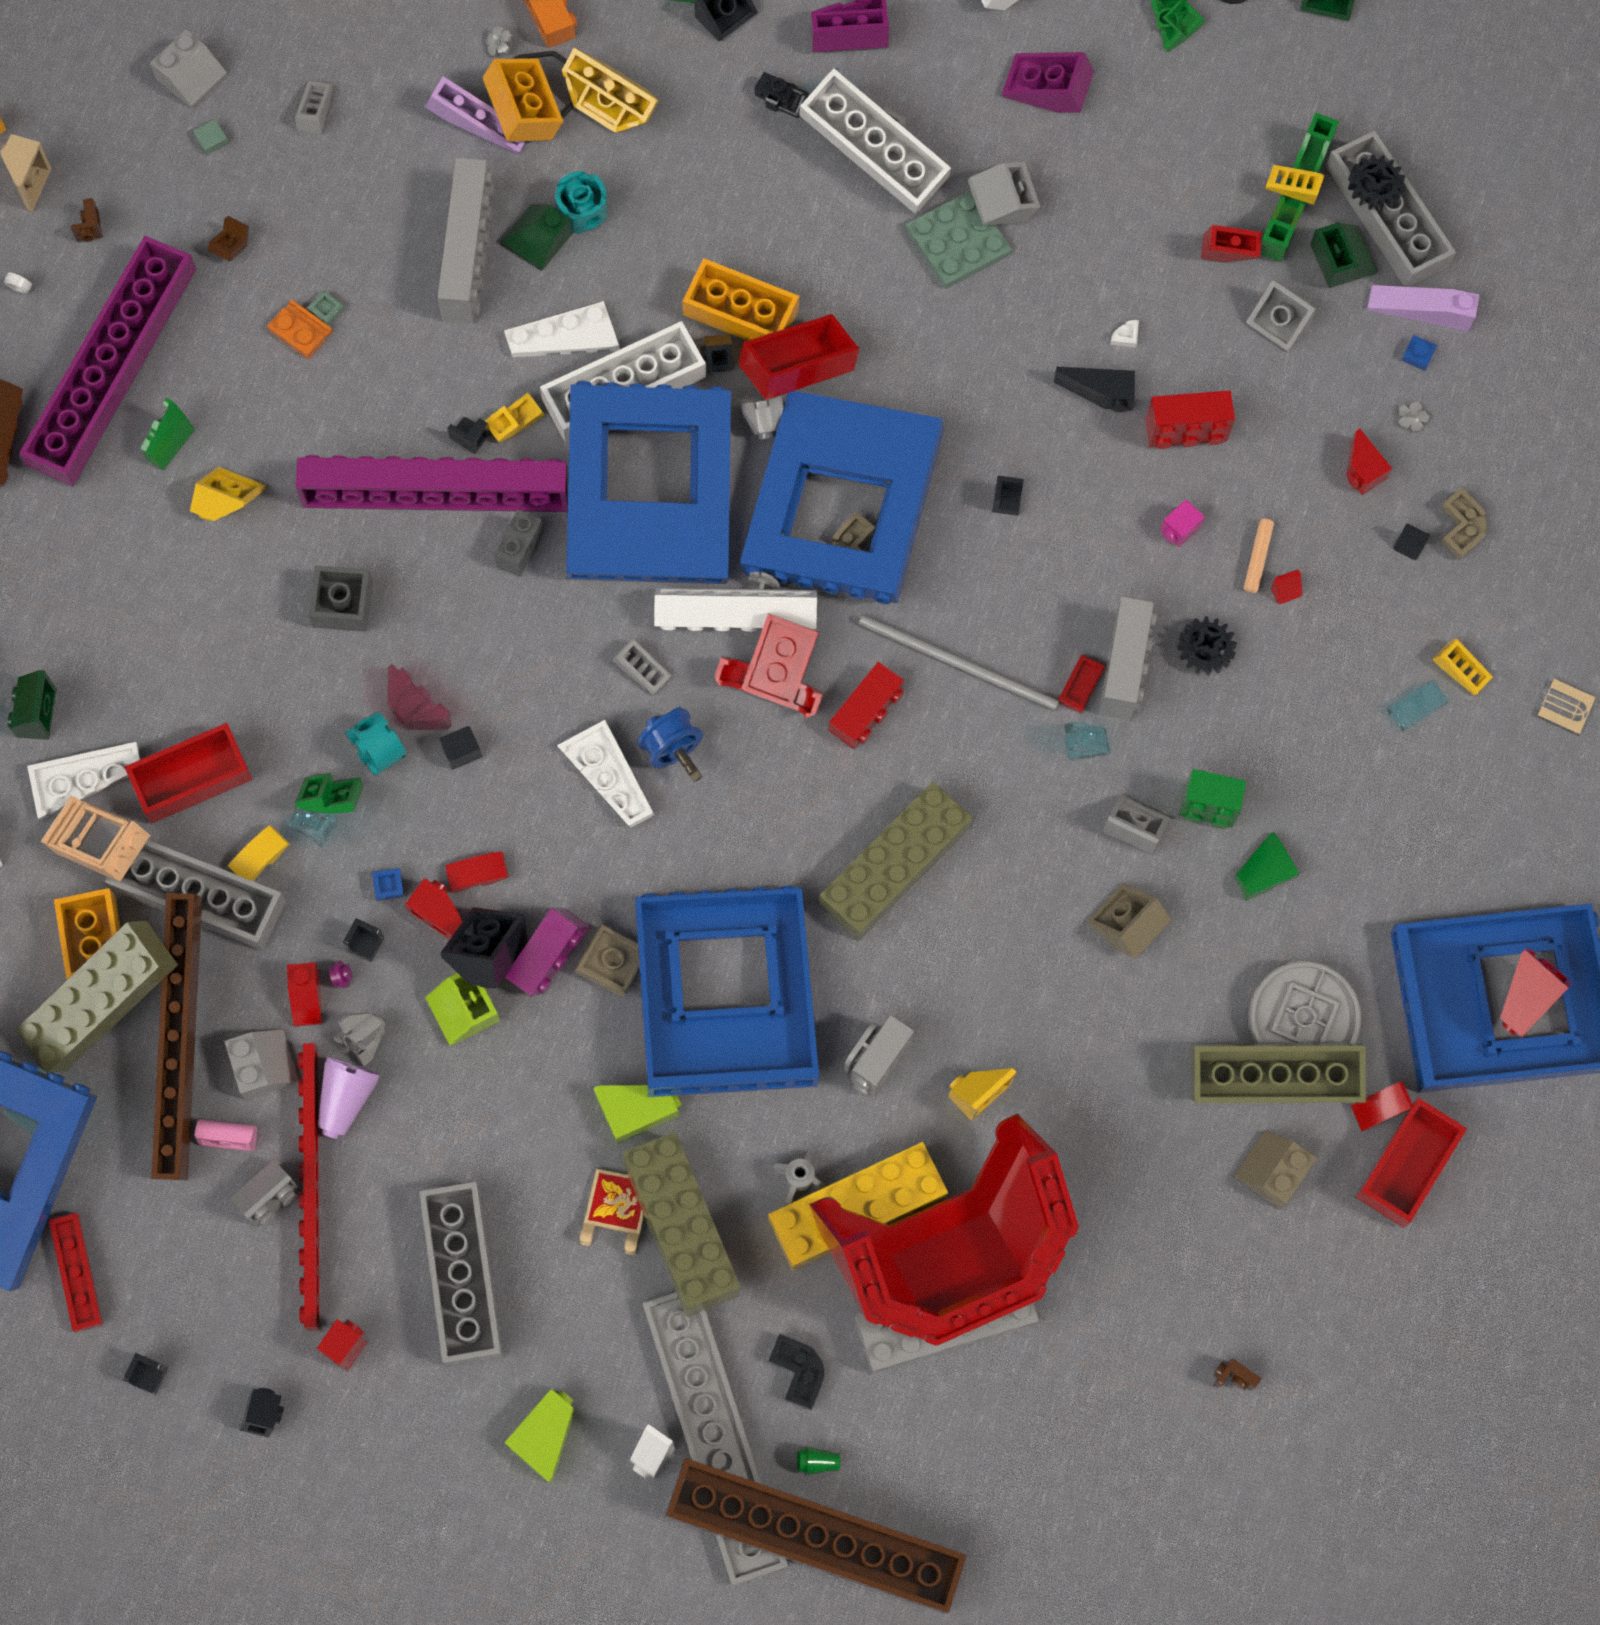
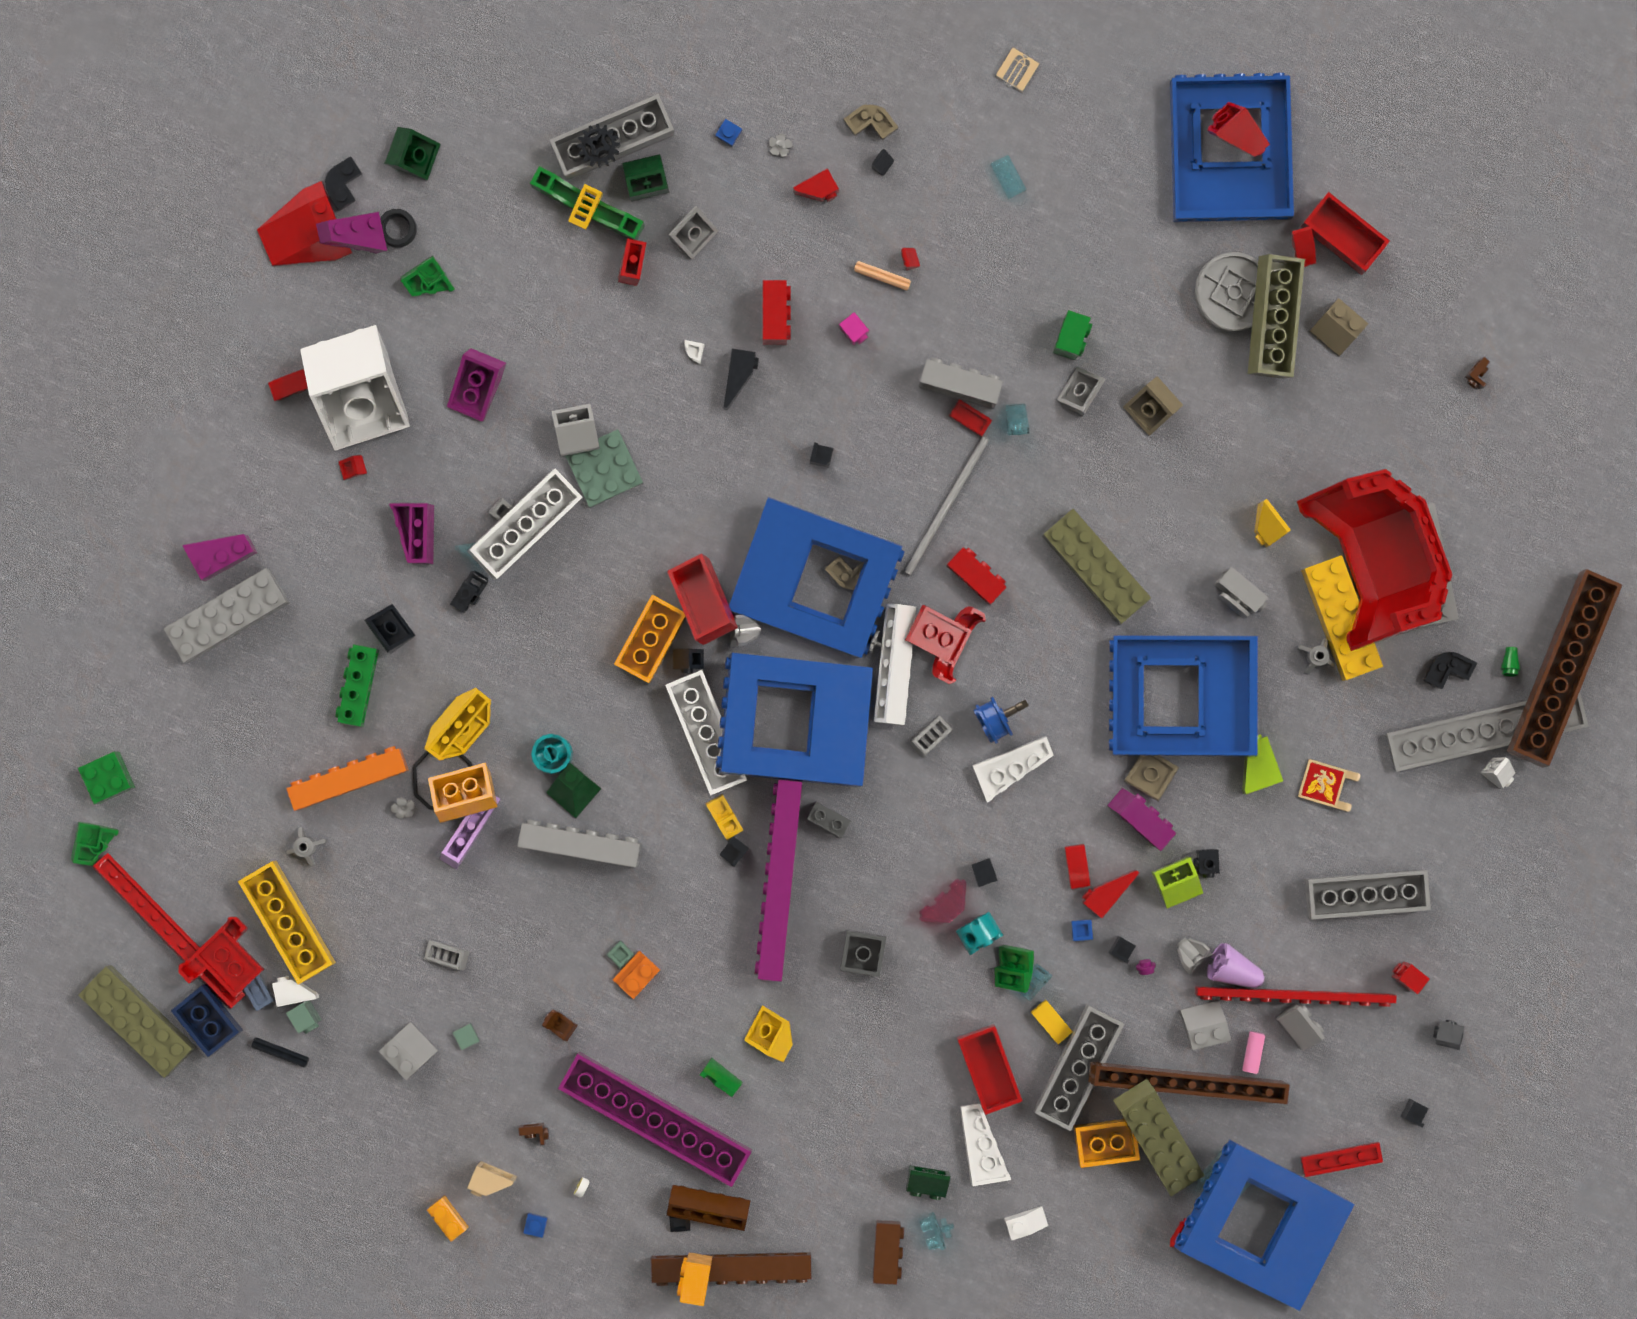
camera: 85 degrees left, 15 degrees up
(95, 838) = (1037, 1136): light nougat door -> none
(304, 994) = (1158, 993): red slope -> none
(486, 946) = (1140, 862): black slope -> none
(493, 1046) = (1207, 862): none -> black brick
(544, 1433) = (1478, 845): lime slope -> none
(571, 331) = (657, 771): white wing -> none
(681, 1224) = (1346, 740): olive brick -> none
(1211, 635) = (960, 320): black gear -> none
(1266, 868) = (1122, 303): green slope -> none
(1429, 305) = (691, 123): lavender slope -> none
(1455, 672) = (972, 148): yellow slope -> none

